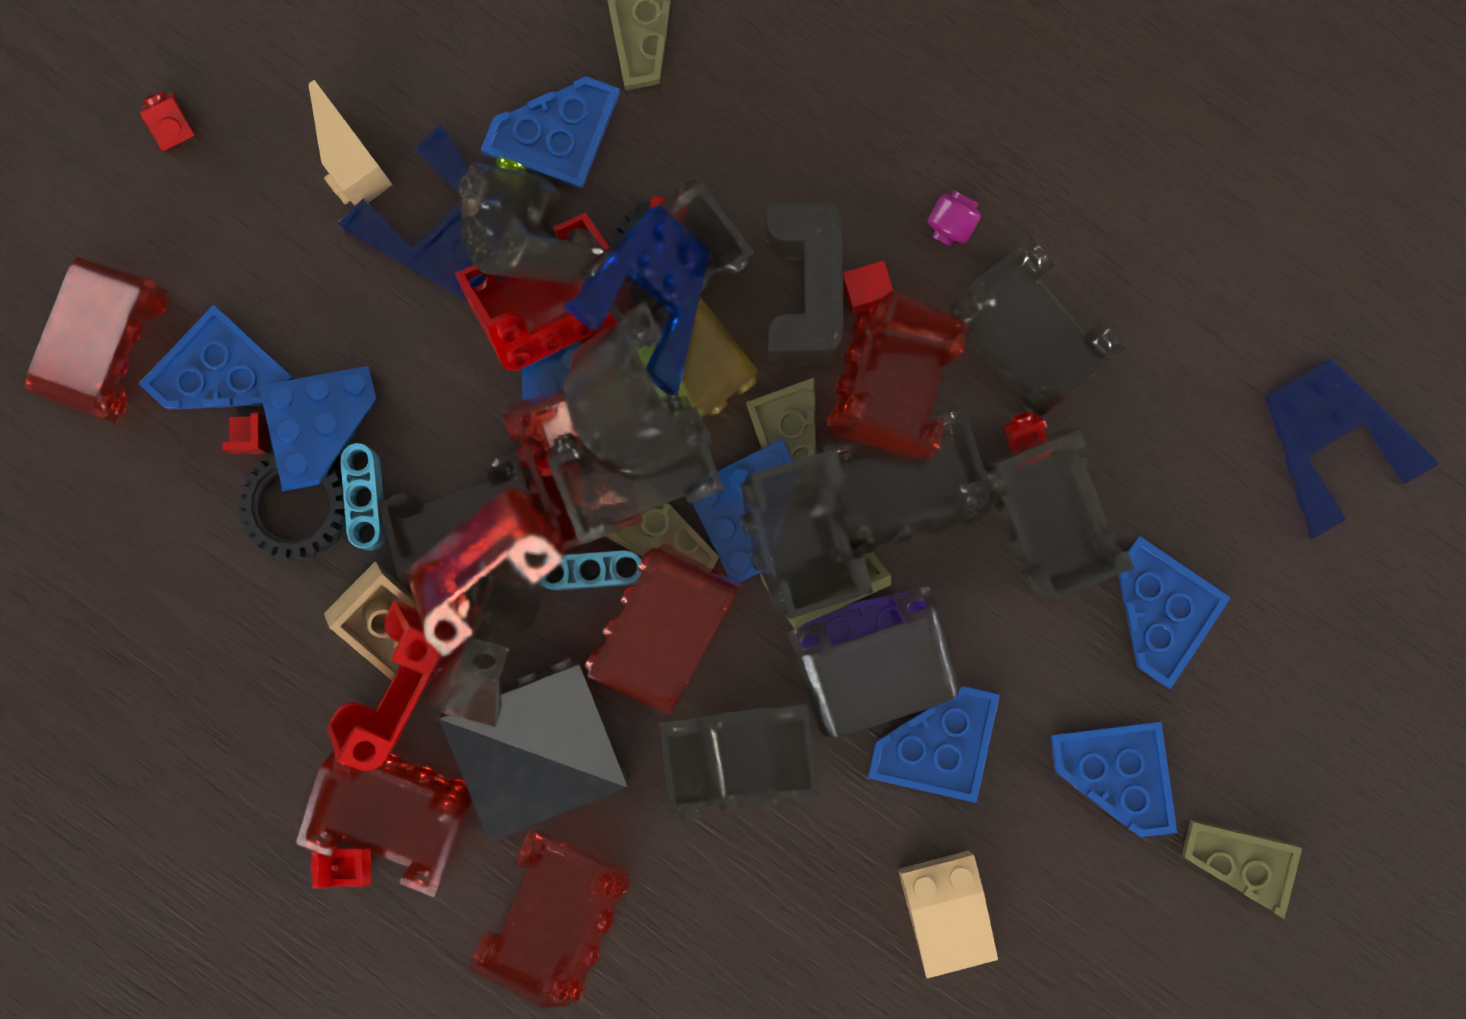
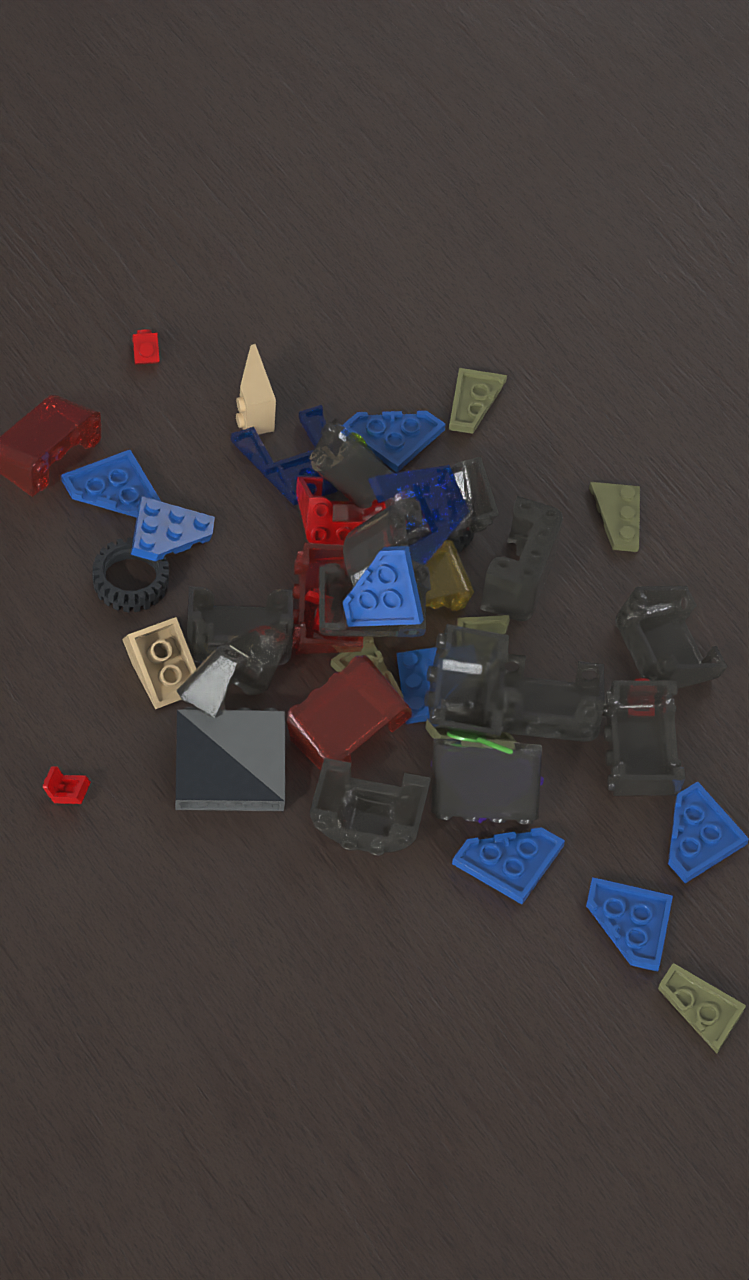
camera: 10 degrees right, 30 degrees down
(248, 435) = (118, 527): red panel -> none
(353, 482) = (176, 587): medium azure beam -> none
(367, 735) = (132, 715): red windscreen -> none
(393, 810) = (118, 771): clear red windscreen -> none
(500, 529) = (282, 603): clear red windscreen -> none
(553, 922) = (203, 869): clear red windscreen -> none
(608, 576) = (301, 671): medium azure beam -> none
(653, 470) = (385, 592): none -> plate
(843, 612) = (477, 738): none -> bright green piece
(866, 285) = (565, 582): red panel -> none
(896, 376) = (567, 630): clear red windscreen -> none
(900, 138) = (620, 513): none -> olive wing
(948, 913) = (477, 961): tan slope -> none
(954, 218) = (639, 564): magenta head -> none

